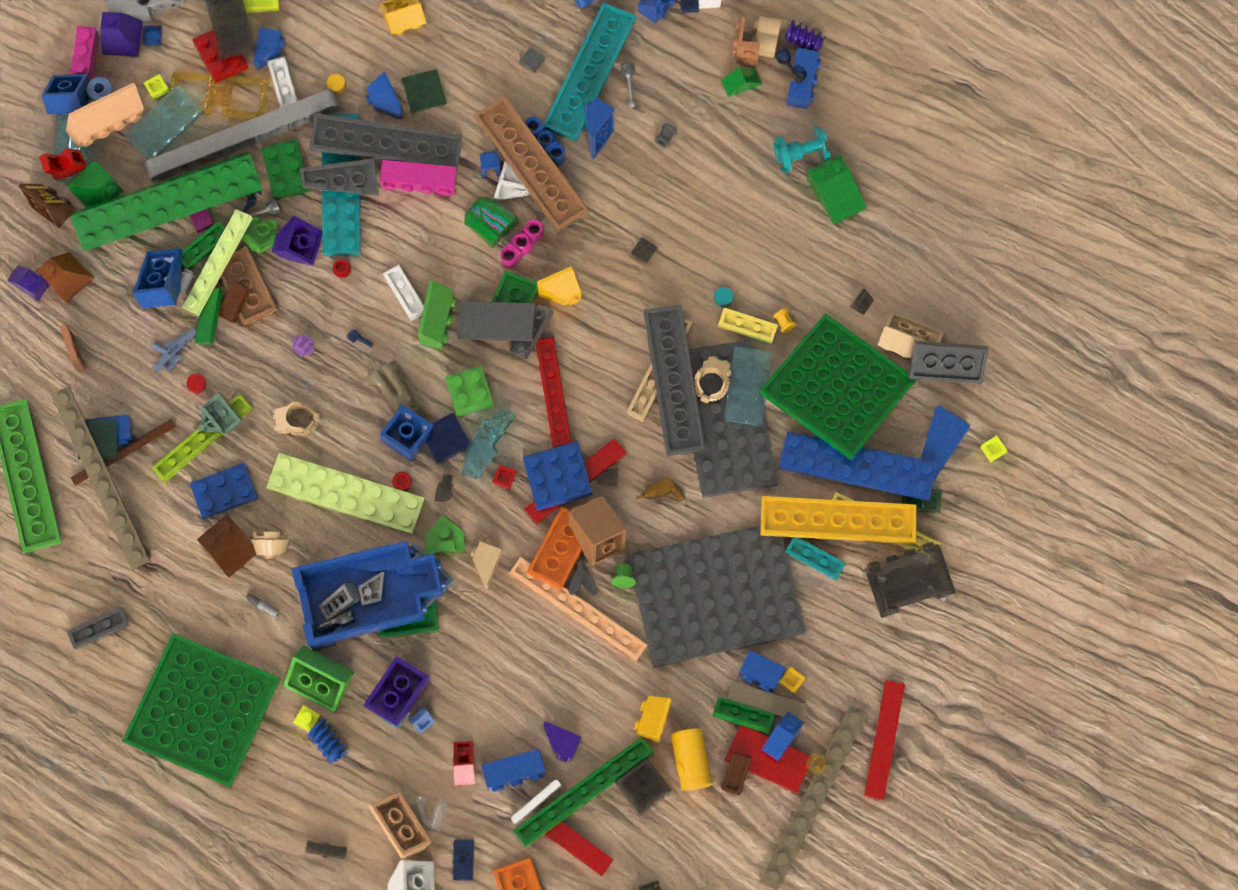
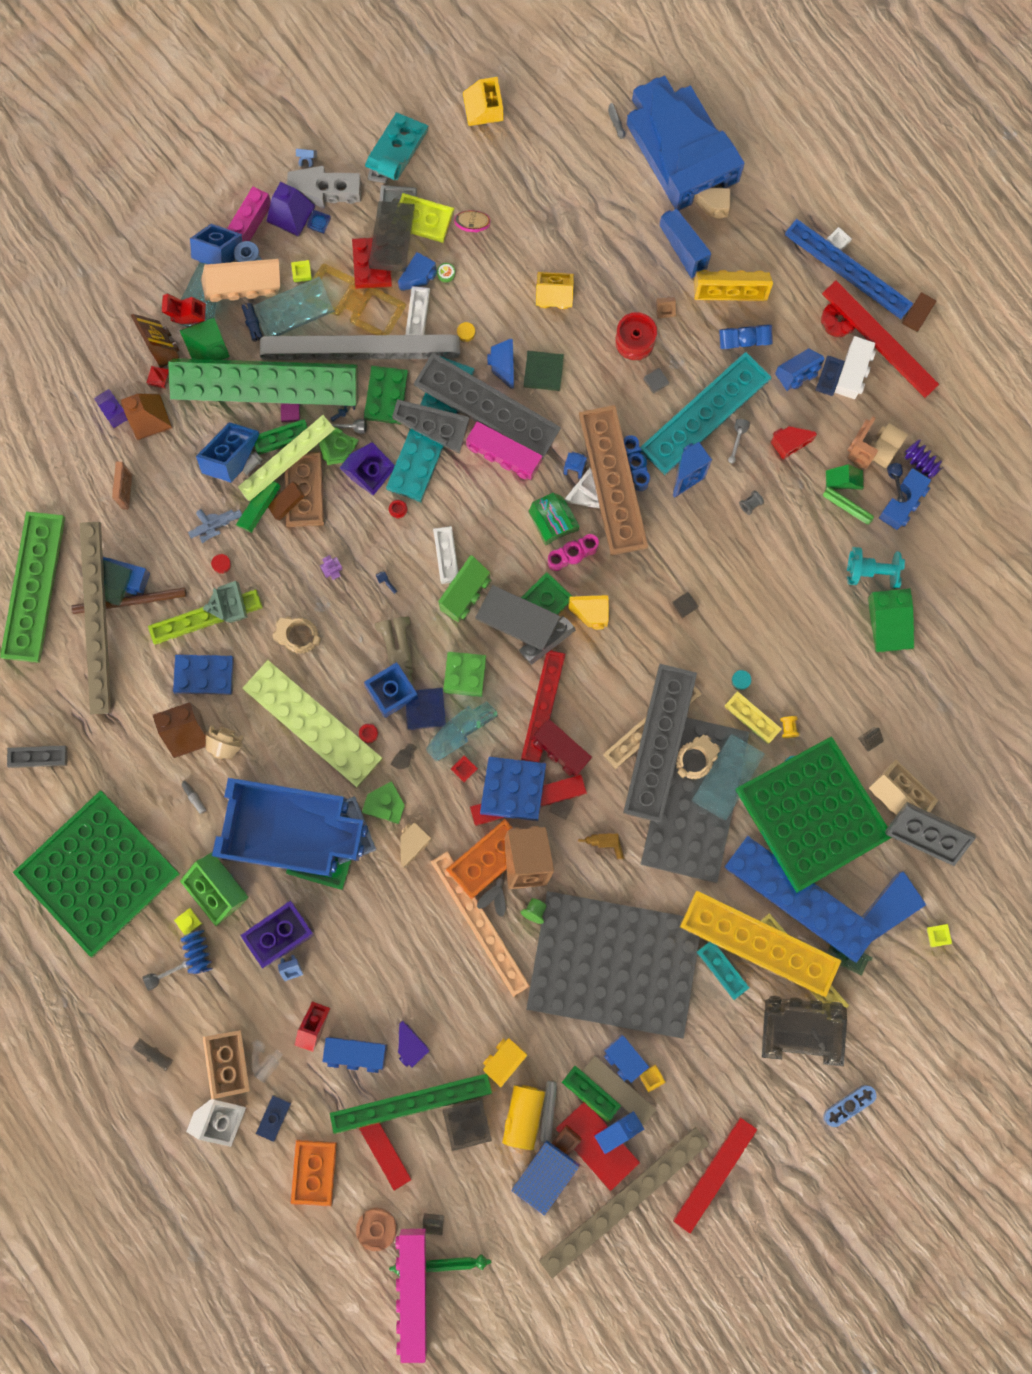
camera: 25 degrees right, 5 degrees up
(61, 237) = (158, 377): none -> red tile
(129, 151) = (252, 321): none -> dark blue pin
(294, 36) = (446, 272): none -> tile
(296, 784) = (152, 980): none -> hinge
(342, 620) = (258, 843): dark grey piece -> none
(350, 595) = (274, 824): light grey slope -> none
(372, 590) = (295, 827): light grey piece -> none
(496, 26) = (635, 336): none -> red wheel
(535, 802) = (372, 1090): white tile -> none
(586, 421) = (561, 748): none -> dark red brick
(678, 65) = (791, 440): none -> red slope
(712, 748) = (548, 1111): none -> light grey axle
(733, 805) = (545, 1177): none -> blue tile
(754, 104) = (848, 505): none -> bright green axle
(816, 769) = (646, 1173): clear yellow plate -> none
(989, 621) = (859, 1093): none -> medium blue beam

